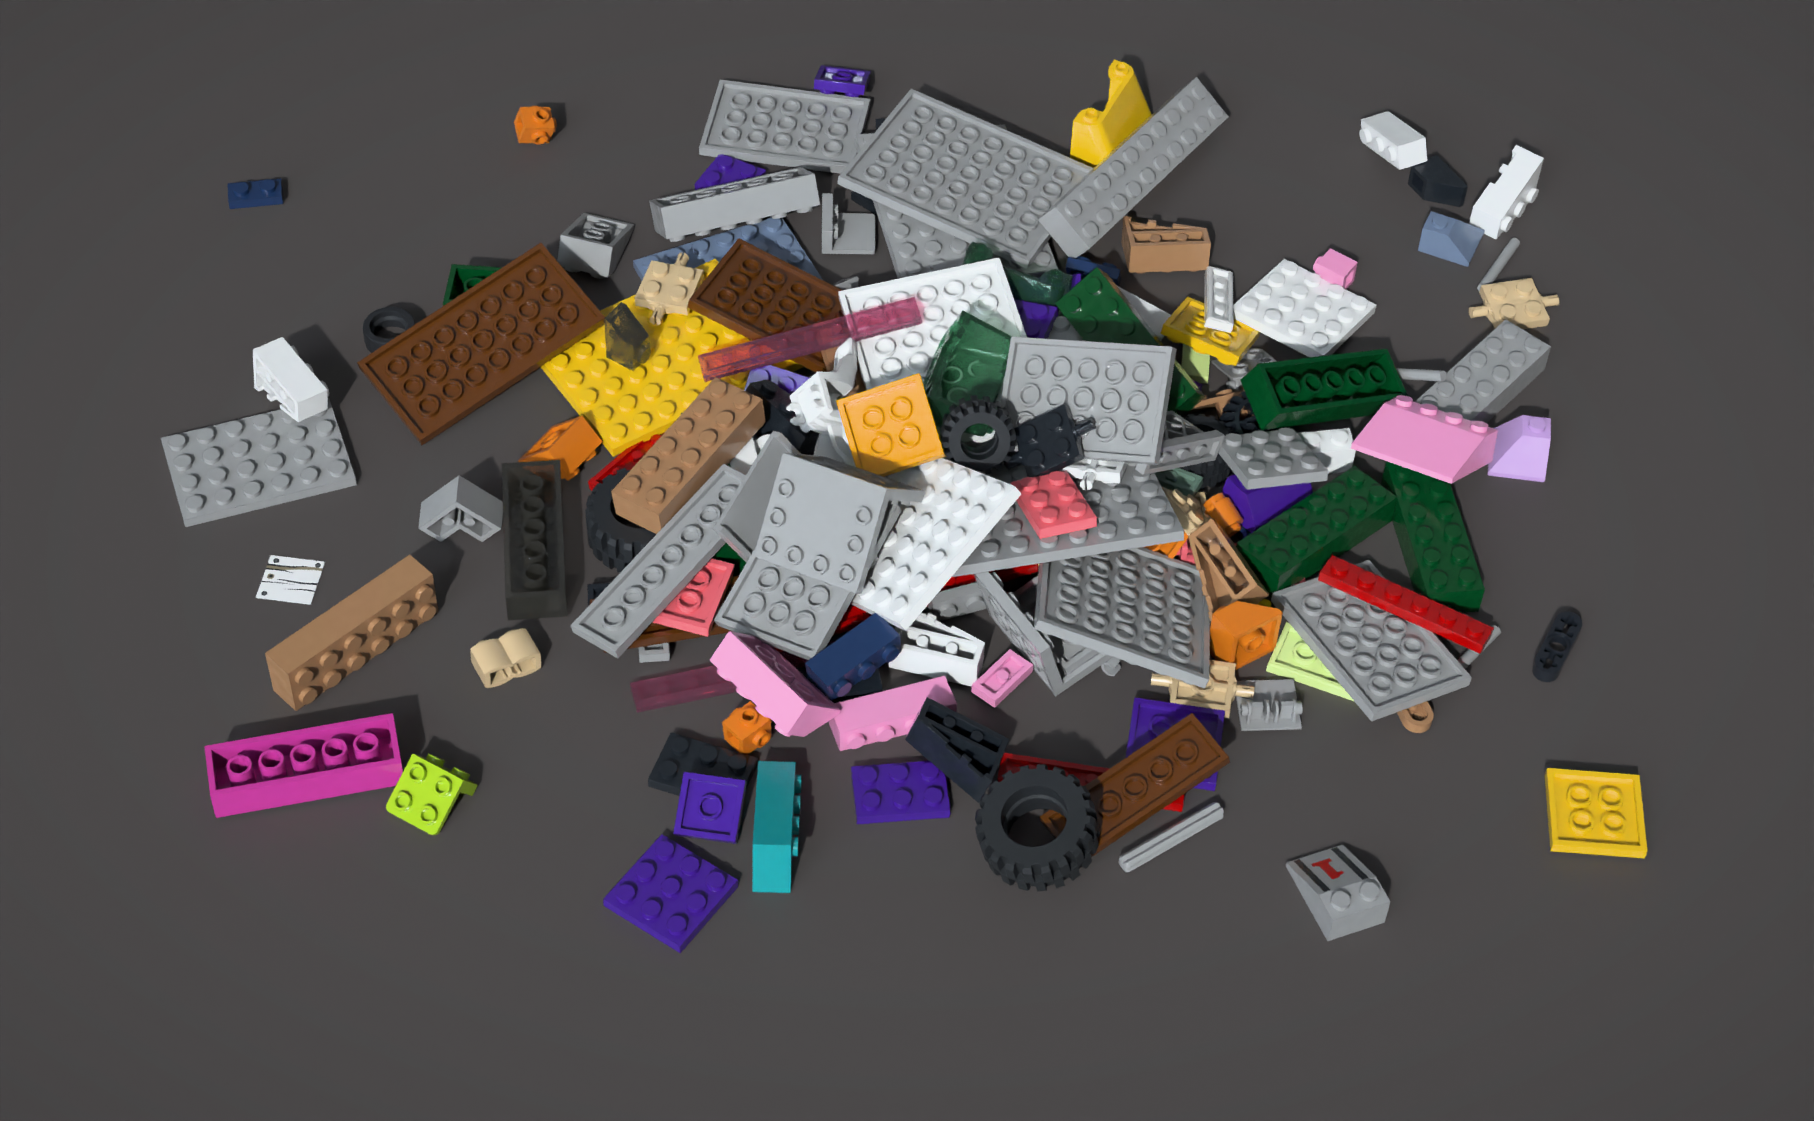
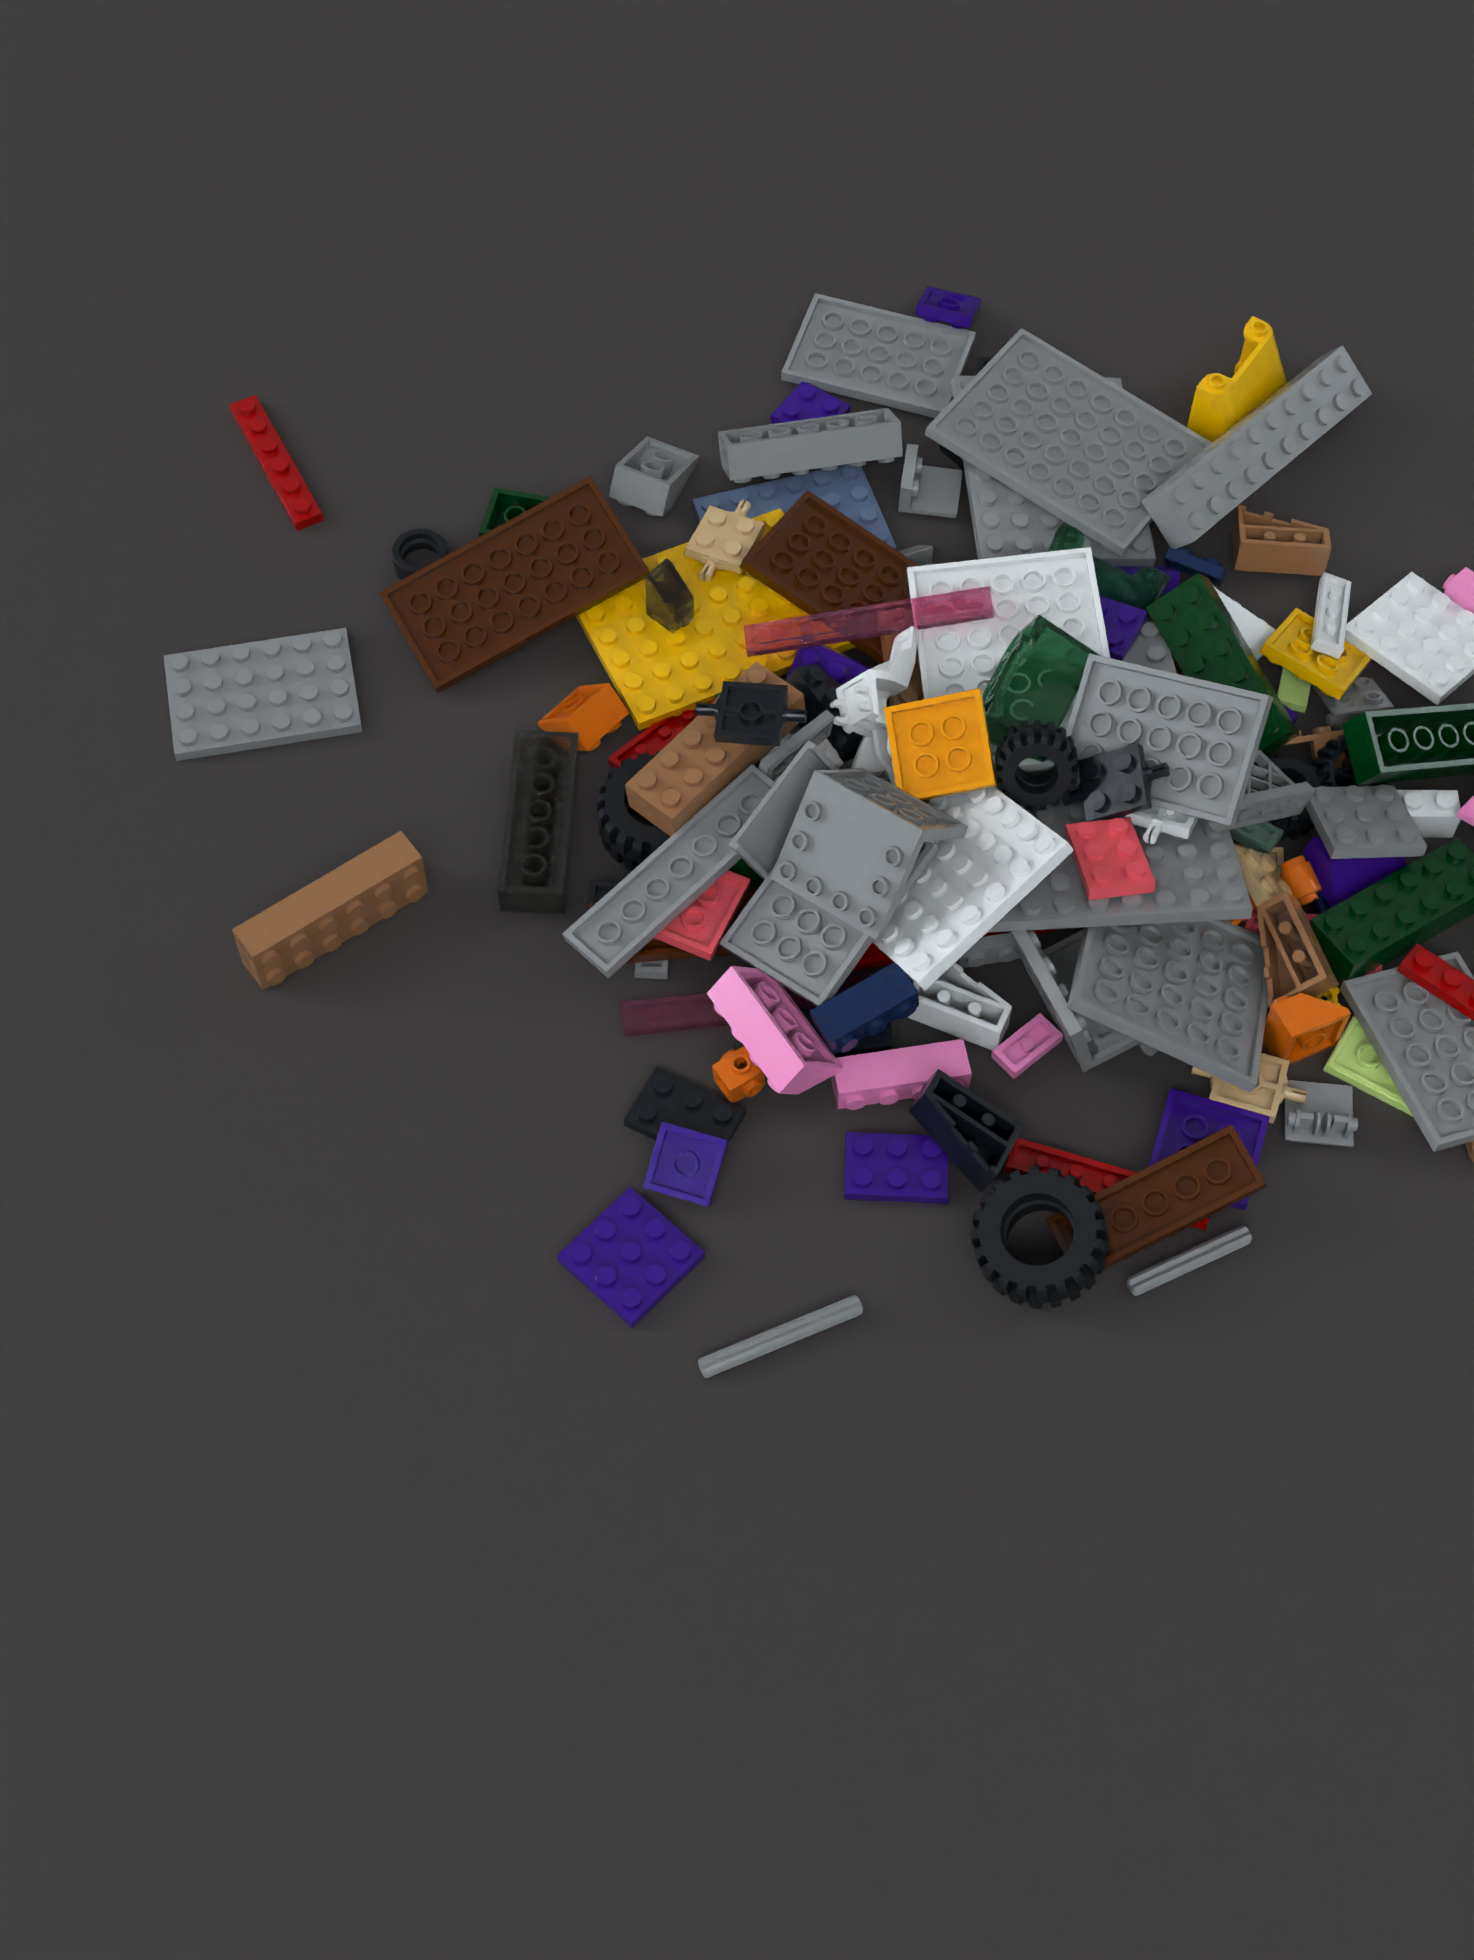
camera: 10 degrees right, 10 degrees up
(242, 266) = (276, 462): none -> red plate
(255, 193) = (301, 378): dark blue plate -> none
(289, 380) = (304, 606): white wedge -> none
(290, 579) = (277, 835): white sticker -> none
(303, 765) = (259, 1059): dark pink brick -> none
(428, 792) = (388, 1105): lime bracket -> none
(461, 507) = (466, 776): light grey brick -> none
(505, 658) = (491, 956): tan brick -> none
(535, 125) = (607, 328): orange brick -> none
(718, 417) = (751, 713): none -> black plate
(745, 458) = (781, 757): none -> light grey tile
(775, 826) = (753, 1193): teal wedge -> none
(816, 942) = (780, 1336): none -> light grey axle
(1339, 891) = (1368, 1351): light grey slope -> none

